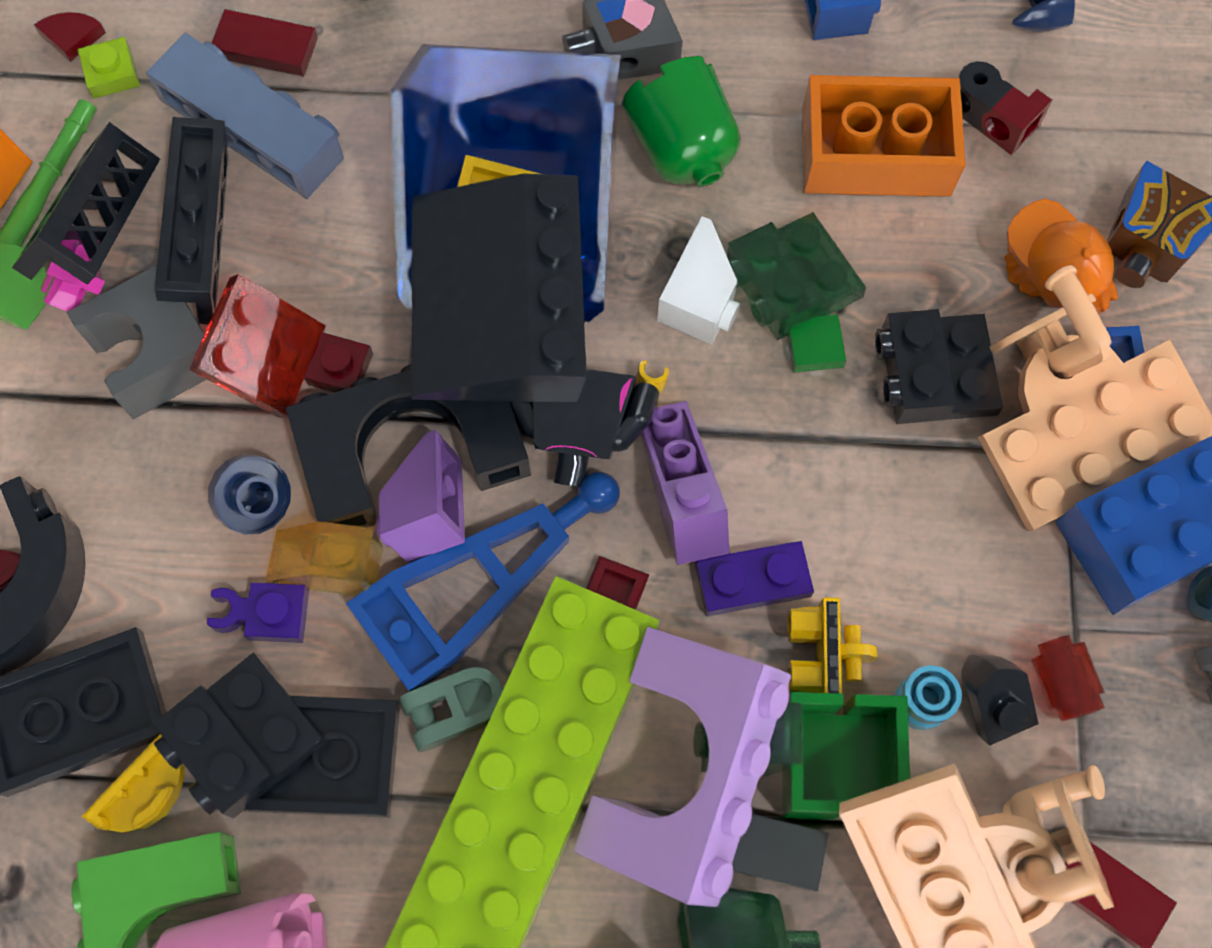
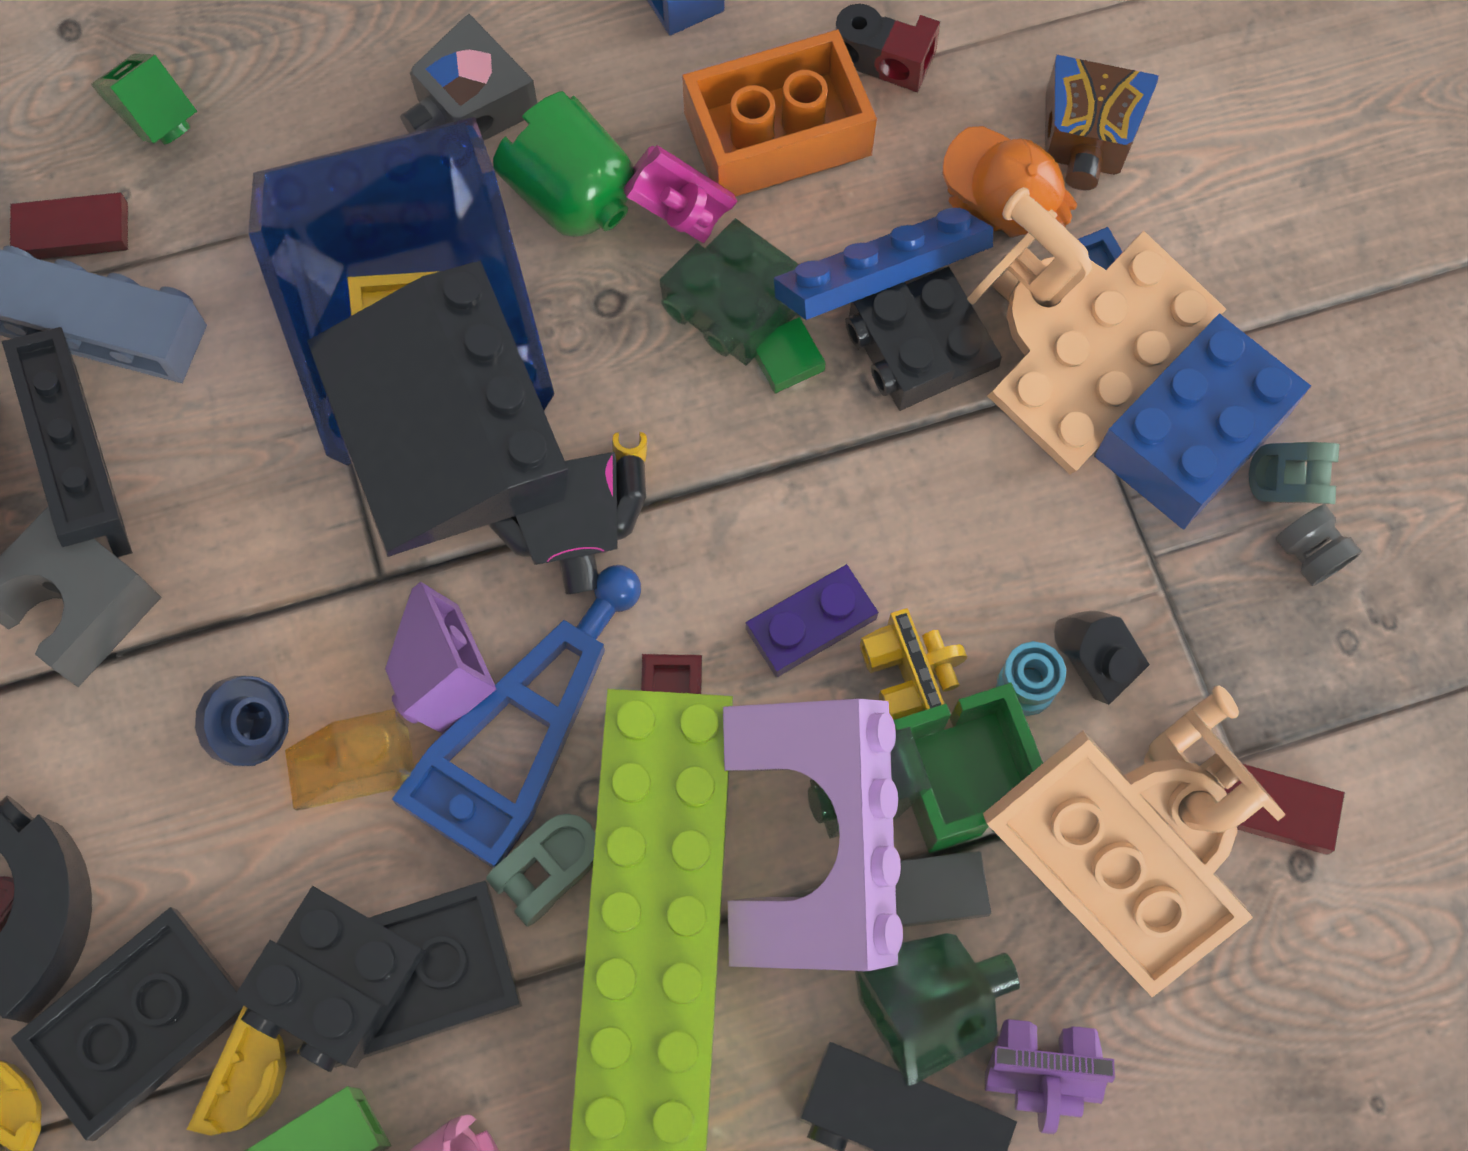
camera: 20 degrees left, 0 degrees up
(257, 346) = (192, 559): clear red plate -> none
(269, 614) = (310, 840): dark purple plate -> none
(337, 363) = (286, 550): dark red plate -> none
(337, 426) = (312, 614): black arch -> none
(685, 485) = (706, 549): medium lavender slope -> none
(700, 288) = (647, 337): white slope -> none
(770, 175) = (678, 193): none -> dark pink hips
(927, 291) = (883, 262): none -> blue plate
(1068, 678) = (1162, 608): clear red brick -> none

